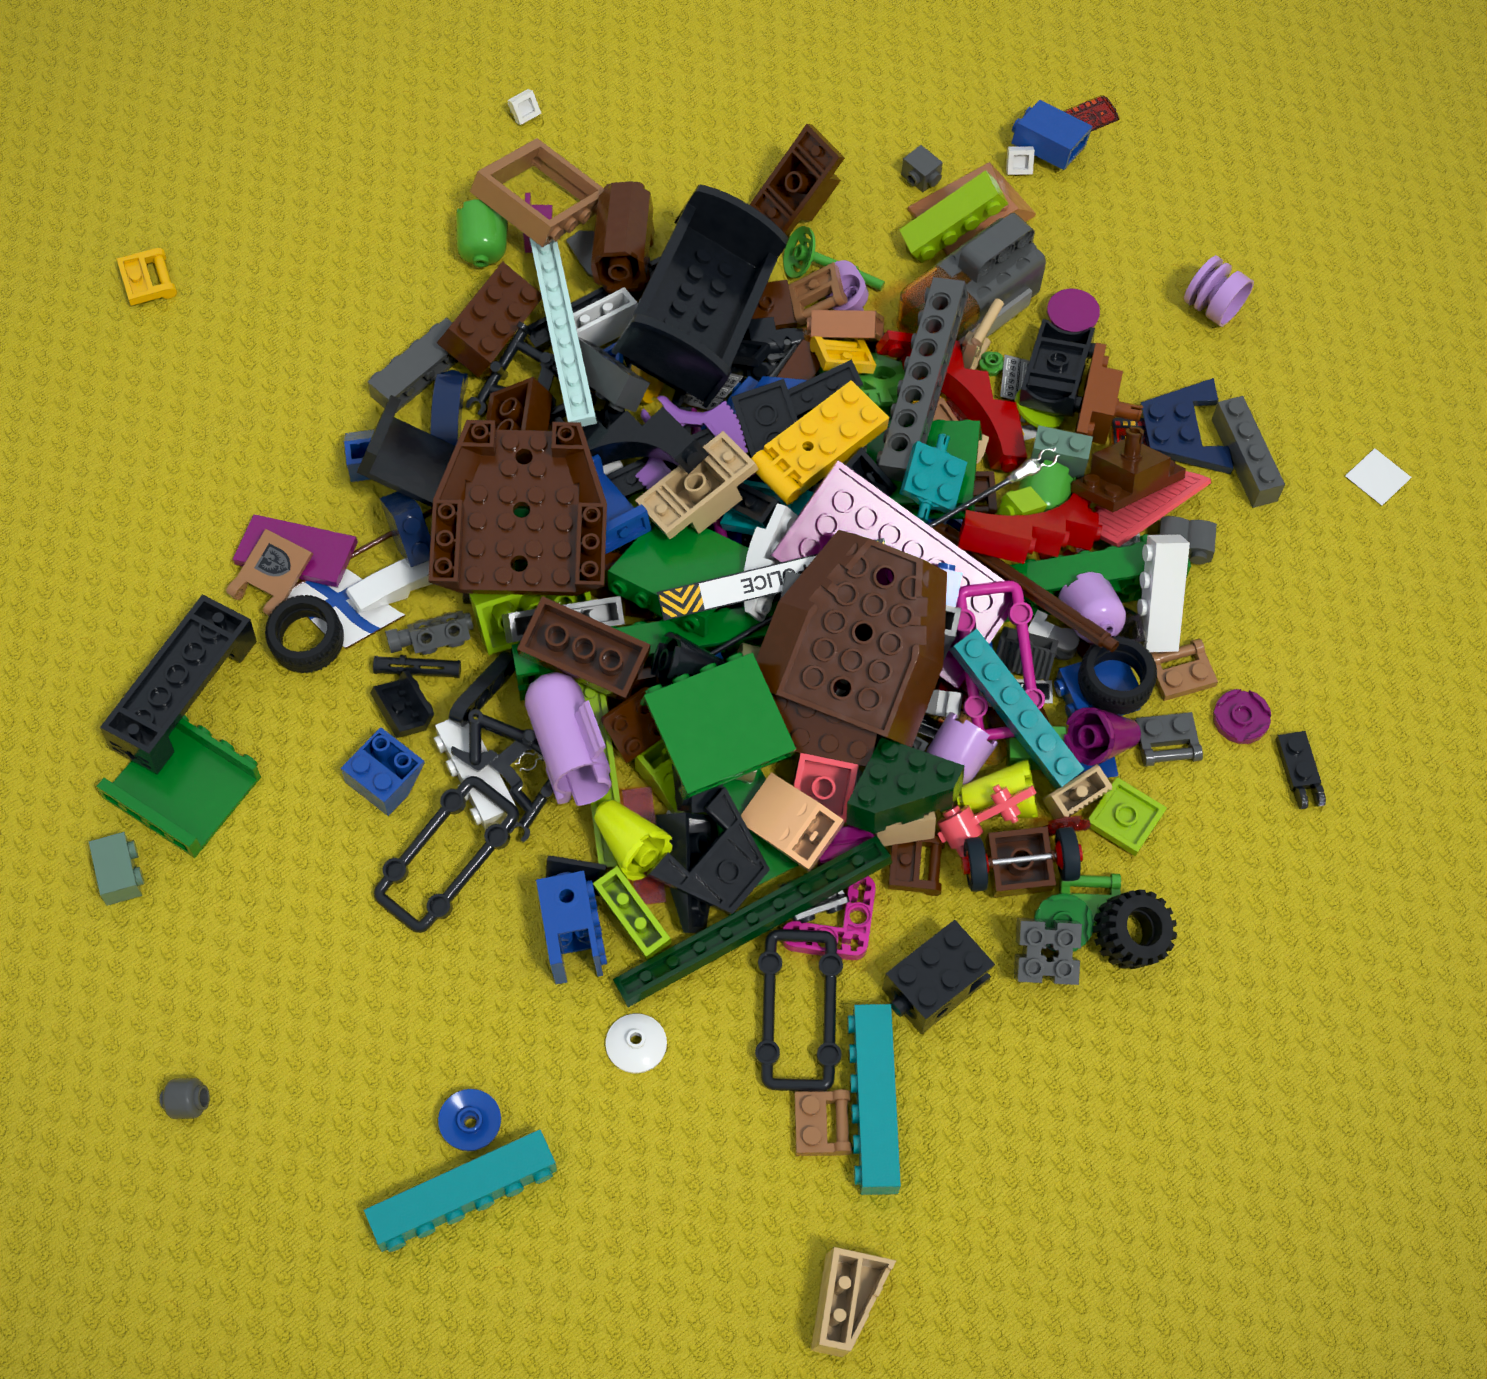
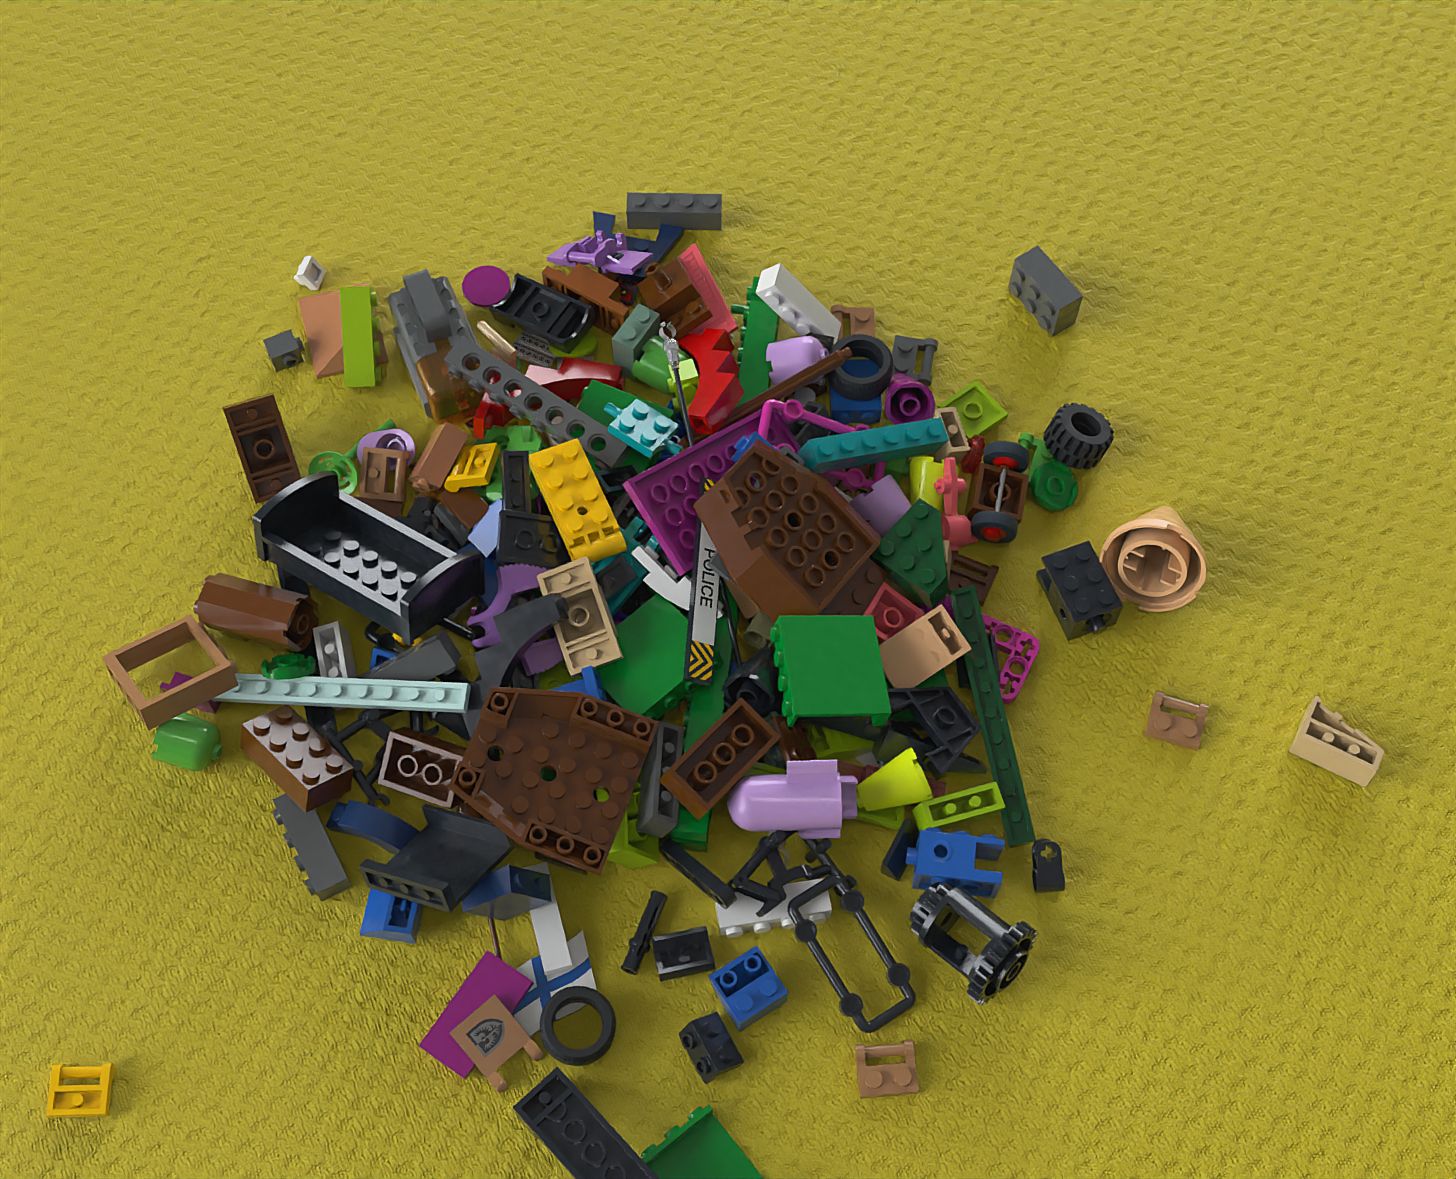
camera: 70 degrees left, 0 degrees up
(320, 757) = (710, 1047): none -> black bracket
(332, 926) = (889, 1078): none -> medium nougat plate
(435, 634) = (617, 903): dark grey brick -> none
(461, 1191) = (1173, 1027): teal brick -> none
(464, 1106) = (1118, 992): blue dish -> none
(474, 980) = (999, 960): none -> black piece
(524, 106) = (45, 664): white tile -> none
(575, 281) = (288, 667): none -> green tile
(582, 246) = (248, 654): dark grey piece -> none
(596, 1022) = (1047, 872): none -> black piece
(636, 1057) = (1076, 857): white dish -> none
(828, 1053) = (1120, 696): black bar -> none
(875, 1100) = (1168, 672): teal brick -> none
(1006, 1040) = (1155, 561): none -> light nougat cone
(1052, 133) = (295, 237): blue brick -> none
(1060, 966) = (1080, 503): dark grey brick -> none
(1095, 112) = (282, 206): clear red piece -> none
(1147, 396) = (602, 254): none -> medium lavender piece
(1199, 533) = (737, 279): dark grey brick -> none
(1218, 291) = (518, 173): lavender wheel -> none
(1242, 716) = (907, 303): magenta tile -> none
(1300, 768) = (967, 281): black hinge -> none
(1313, 846) = (1045, 291): none -> dark grey brick
(1378, 476) = (725, 136): white sticker -> none

